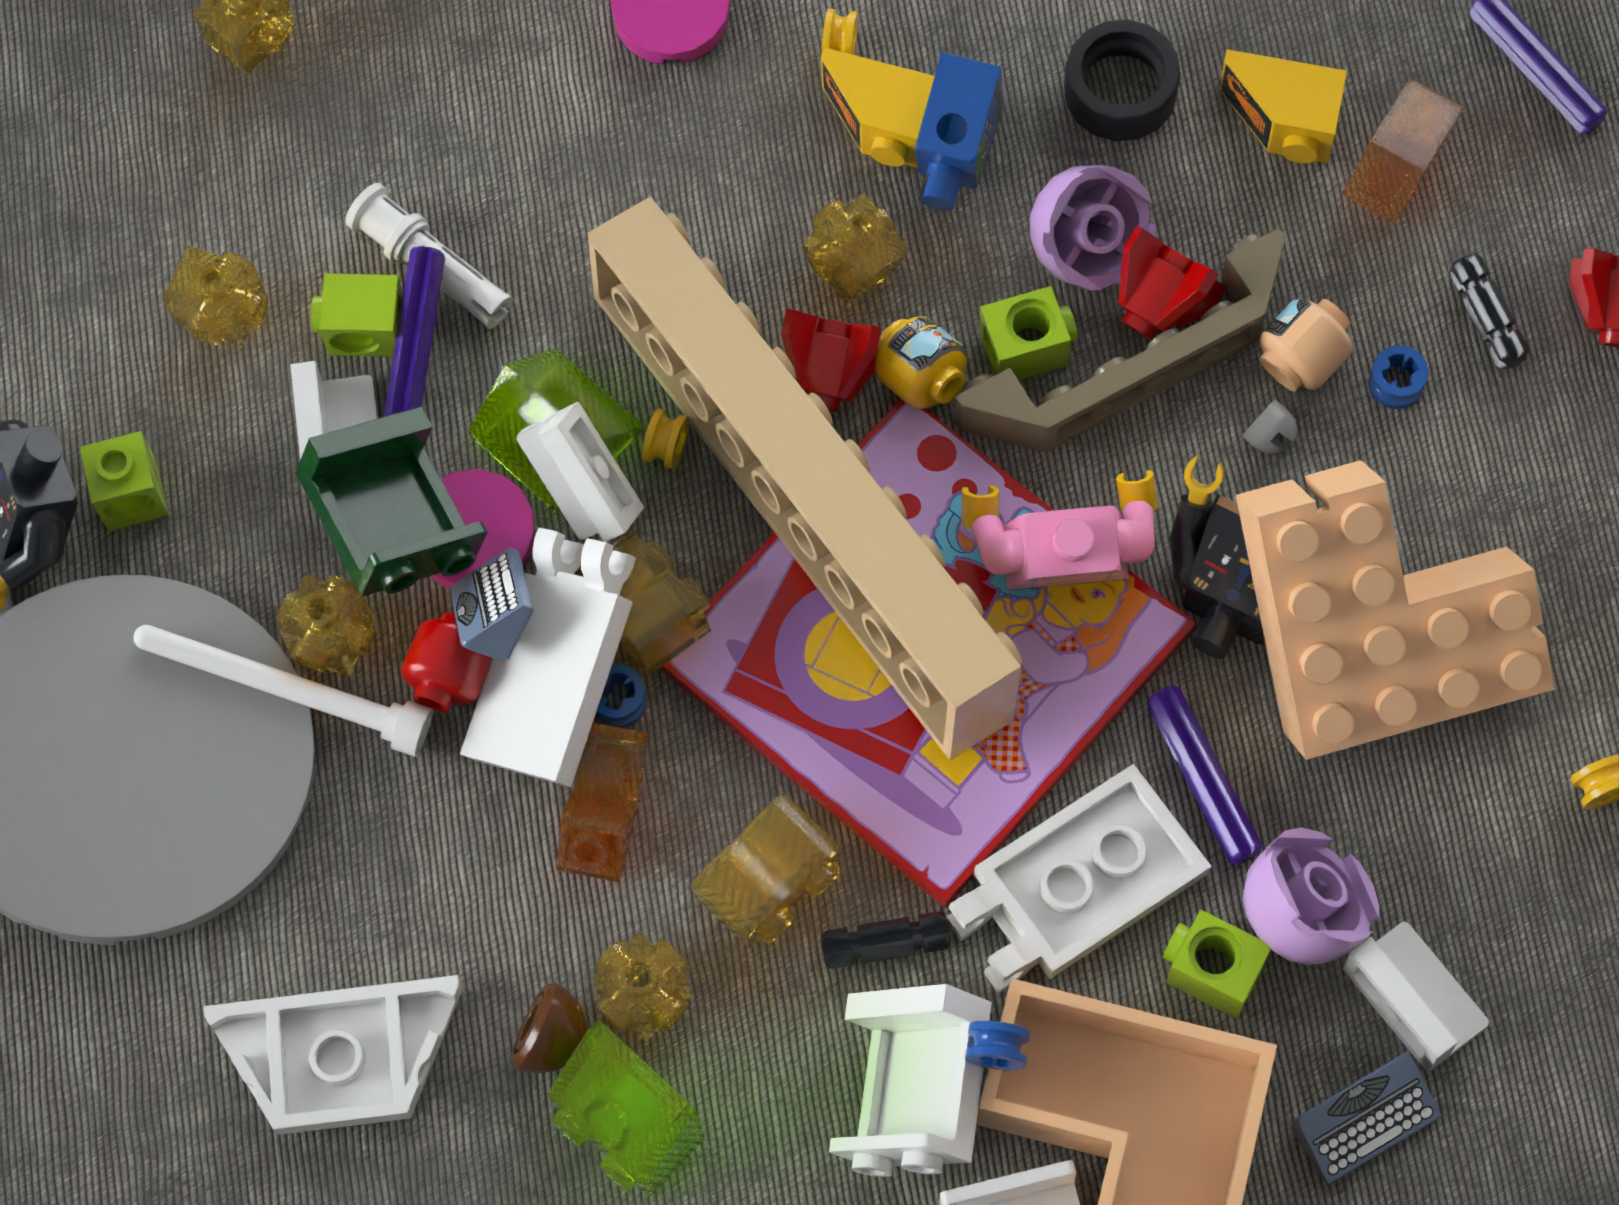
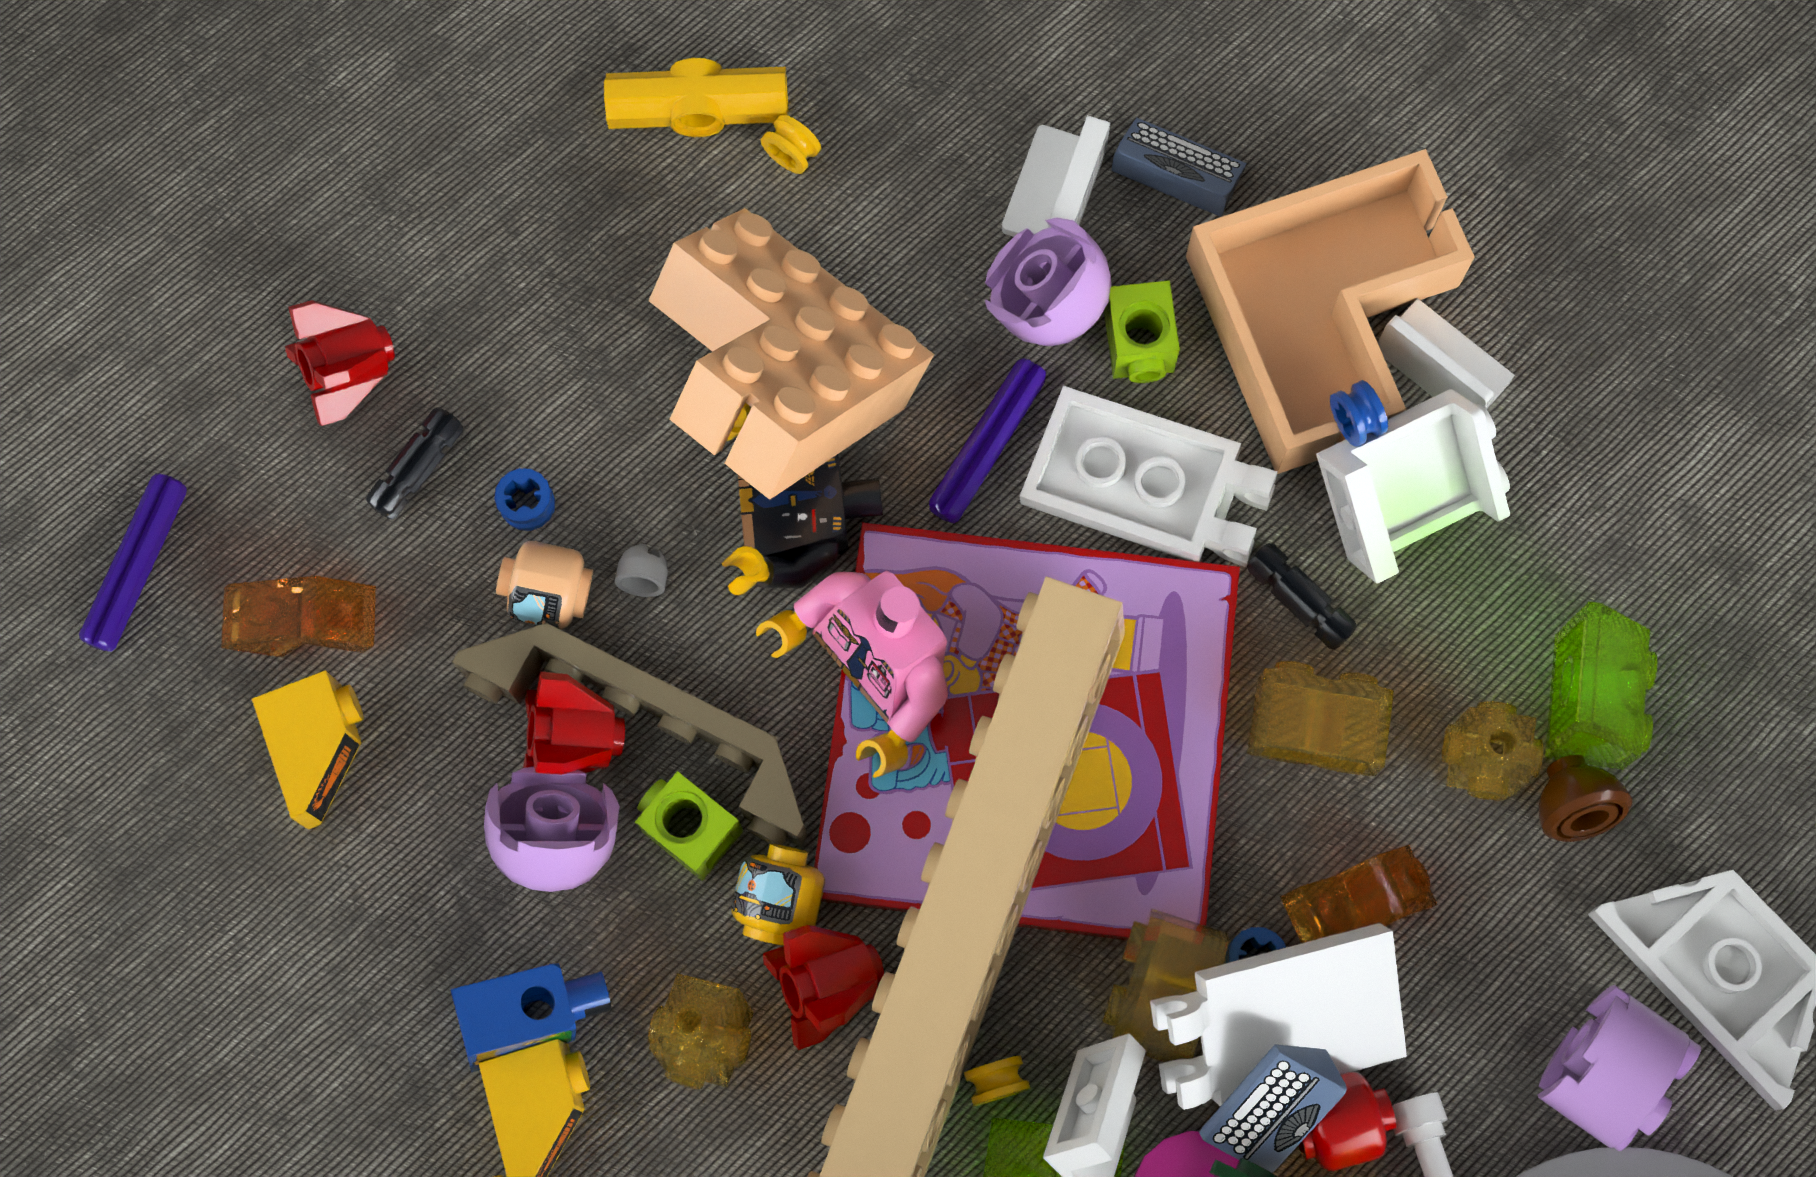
camera: 125 degrees left, 5 degrees up
(328, 886) = (1617, 1069): none -> lavender brick
(1118, 39) = (325, 884): black tyre -> none

